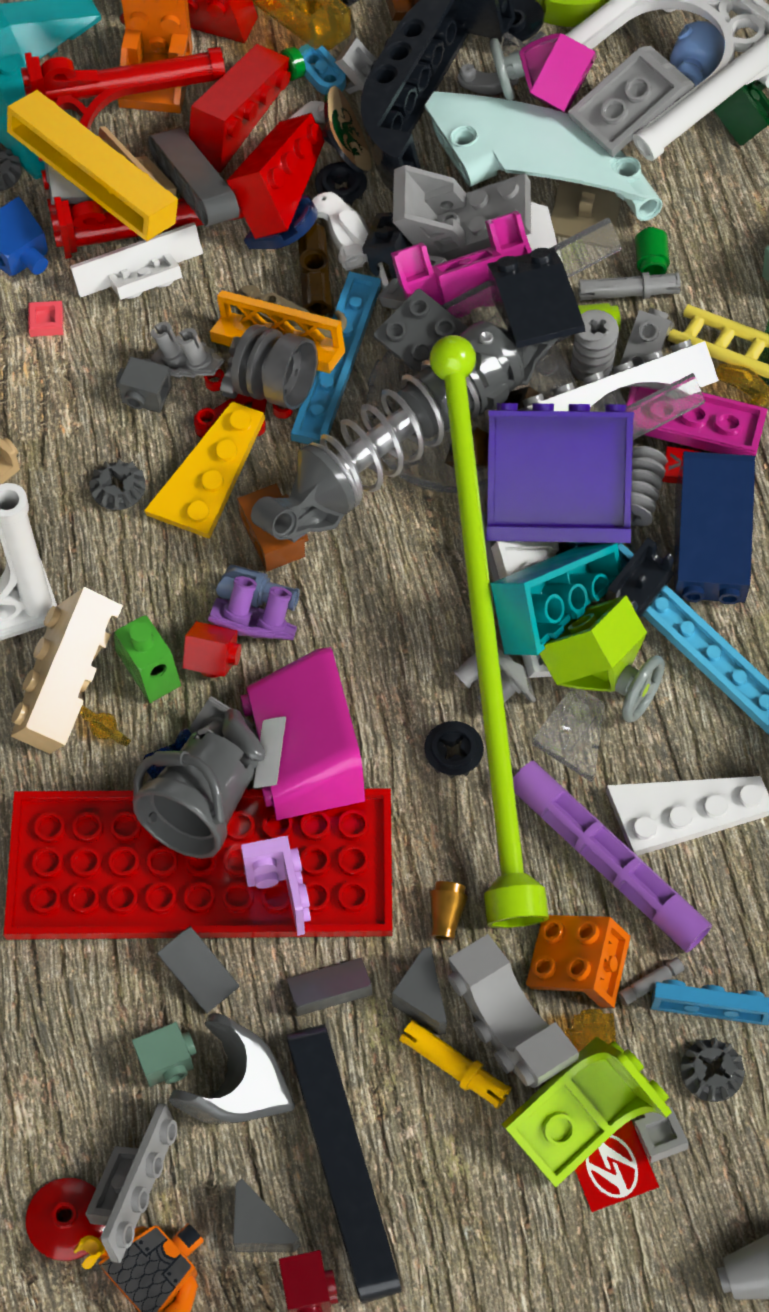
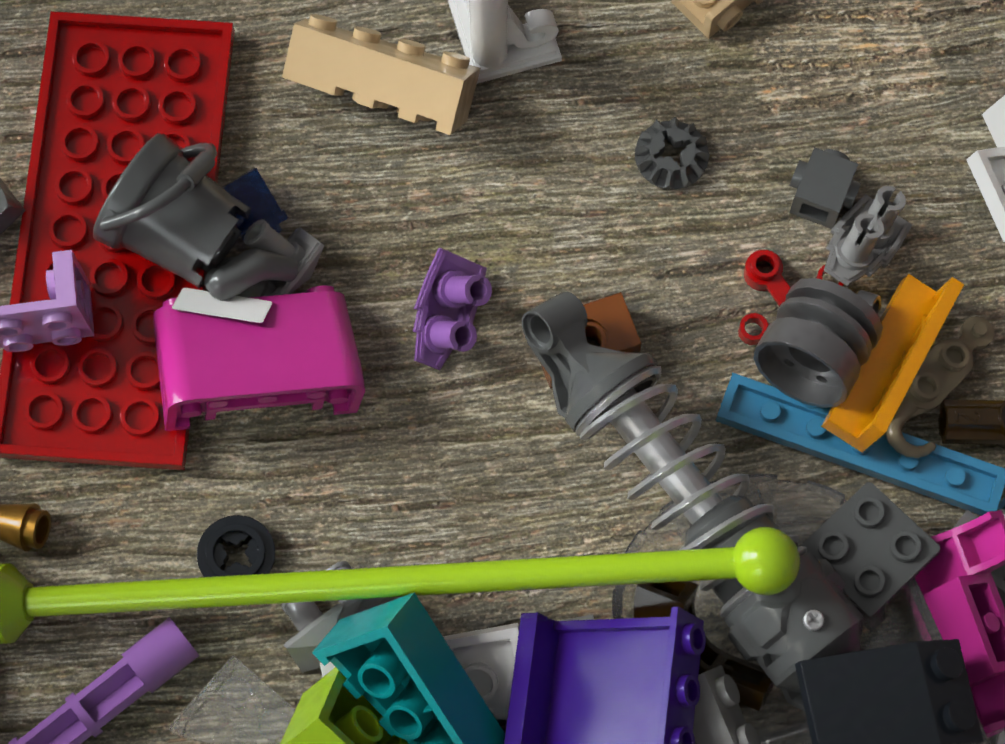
camera: 95 degrees right, 10 degrees up
(45, 318) = (945, 69): coral tile -> none
(104, 726) = (318, 129): clear yellow piece -> none
(142, 650) = (398, 174): bright green torso -> none
(206, 478) = (672, 263): yellow wing -> none
(211, 649) = (401, 253): red brick -> none
(261, 592) = (495, 317): sand blue arm -> none

